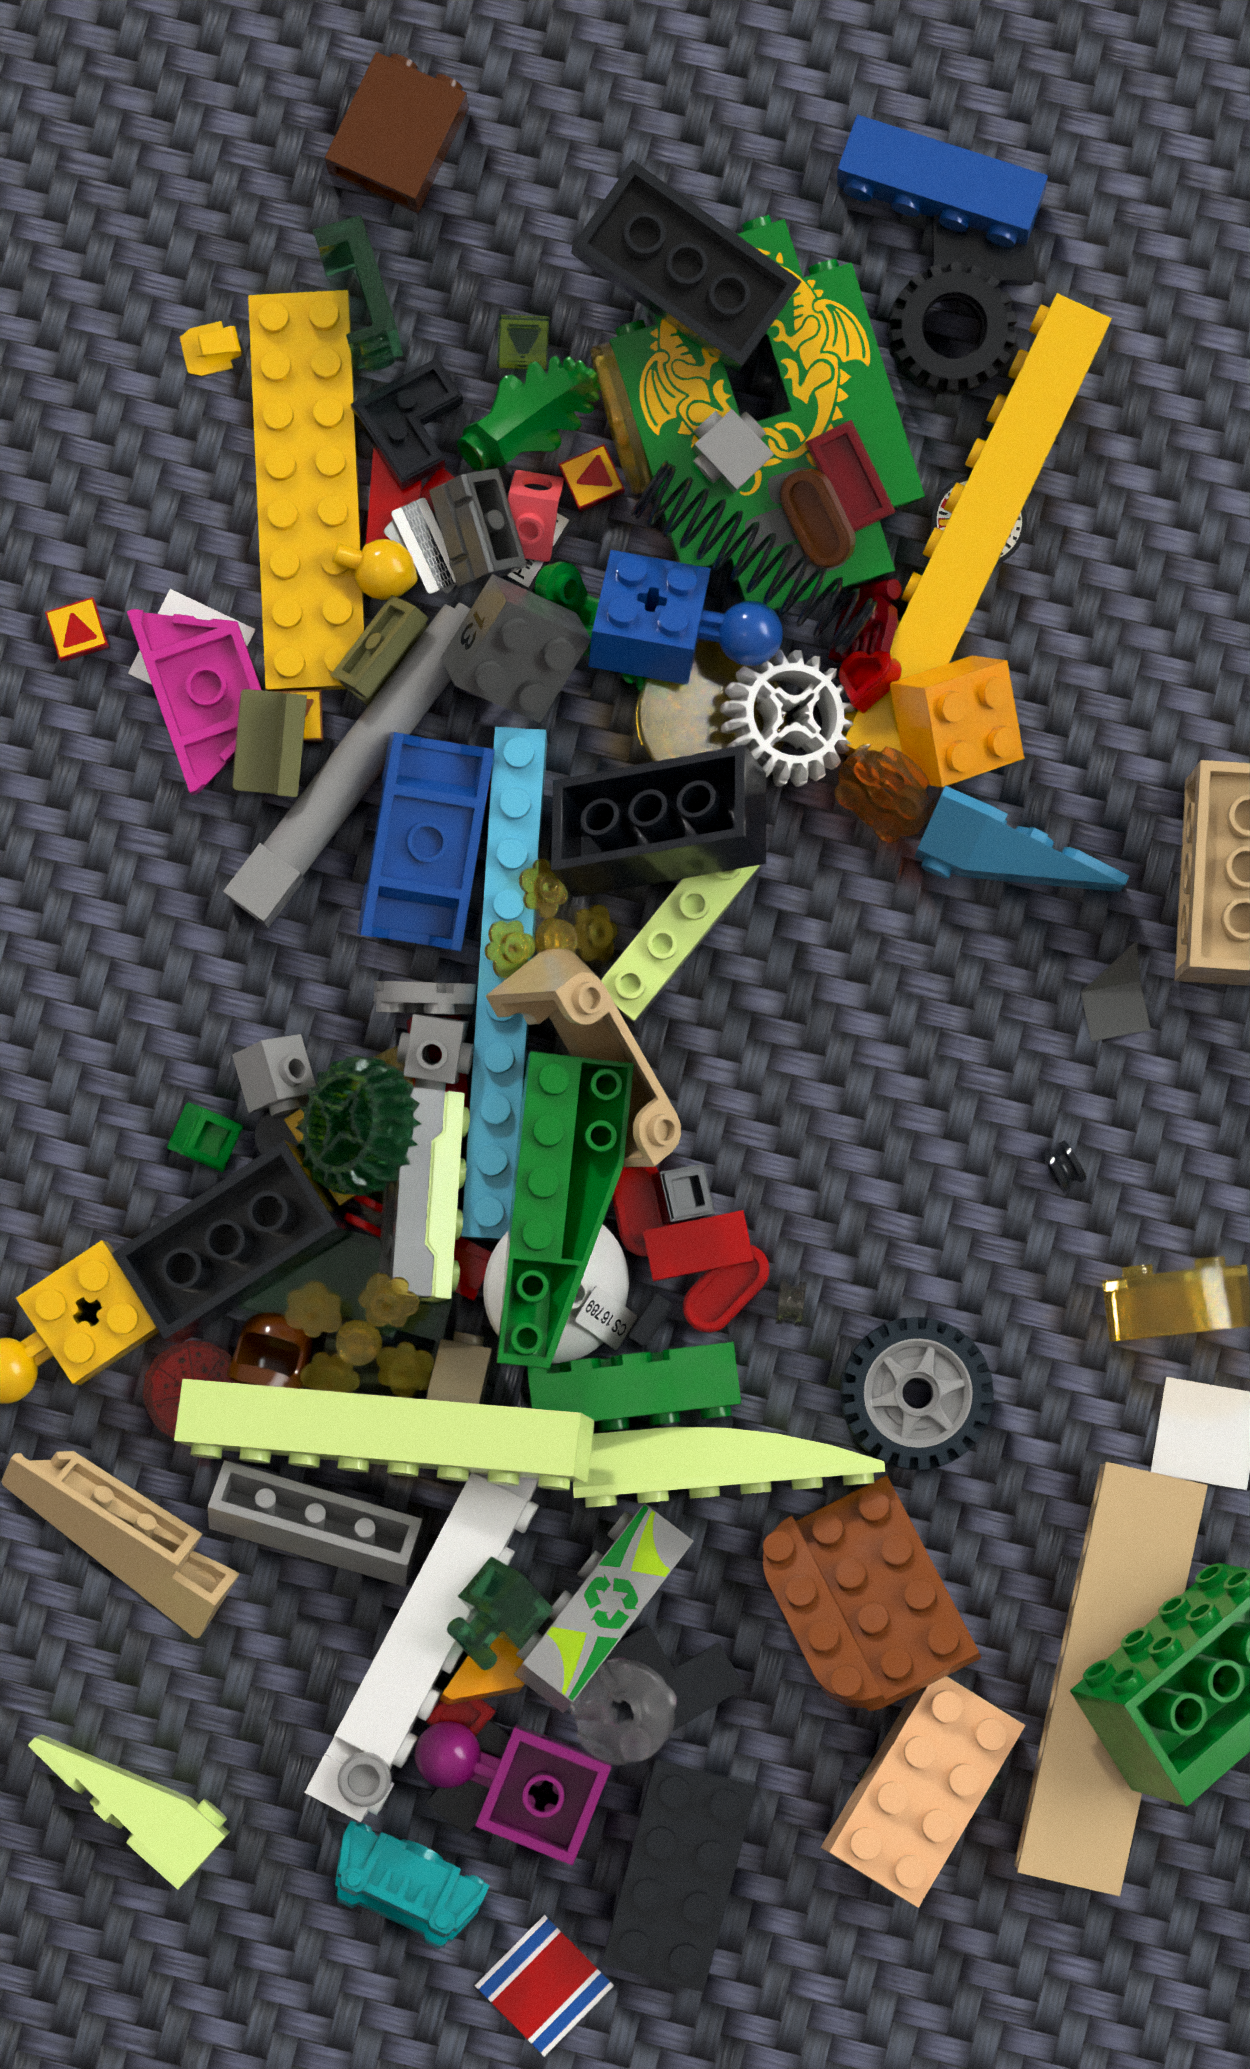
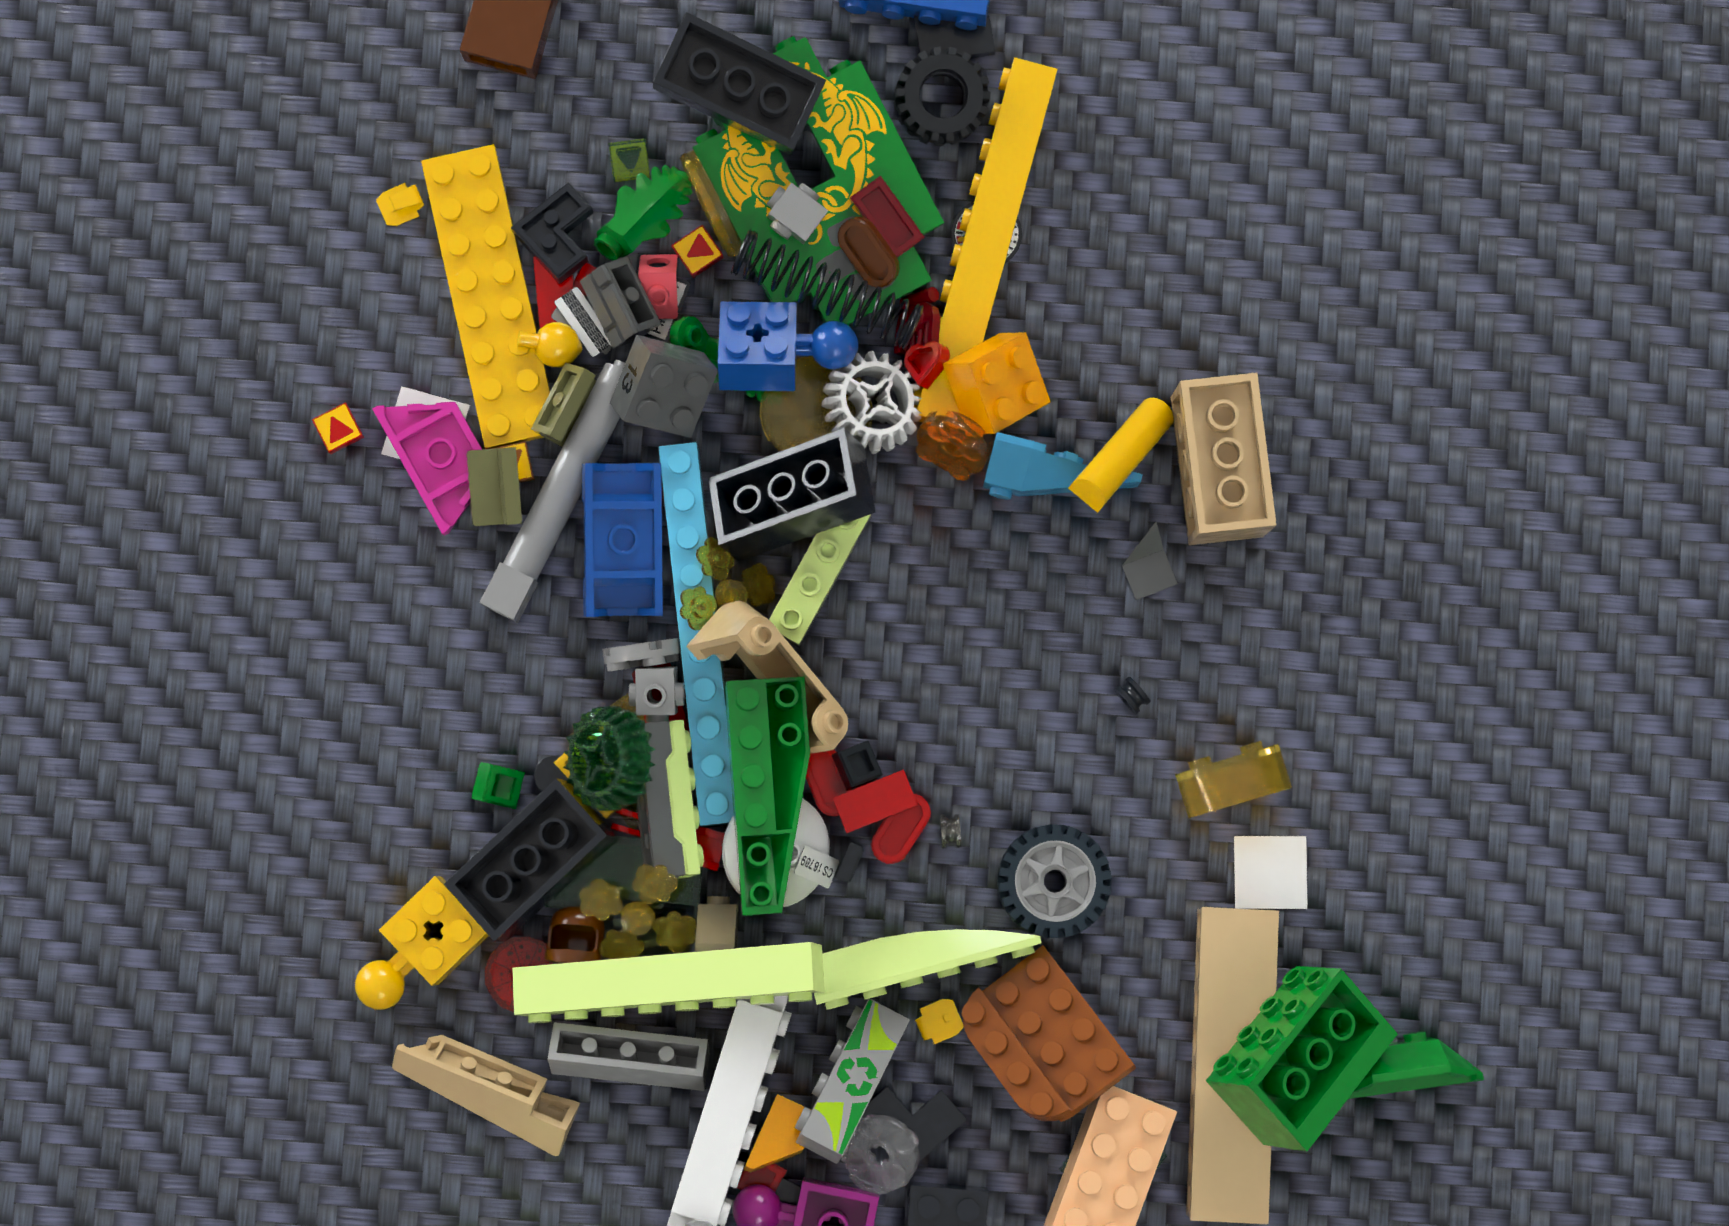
camera: 15 degrees left, 0 degrees up
(274, 1074) = (541, 731): light grey brick -> none
(347, 247) = (486, 113): clear green panel -> none
(503, 1608) = (779, 1095): clear green brick -> none
(641, 1385) = (850, 912): green wedge -> none
(732, 1550) = (939, 1021): none -> yellow piece
(1108, 843) = (1123, 453): none -> yellow brick

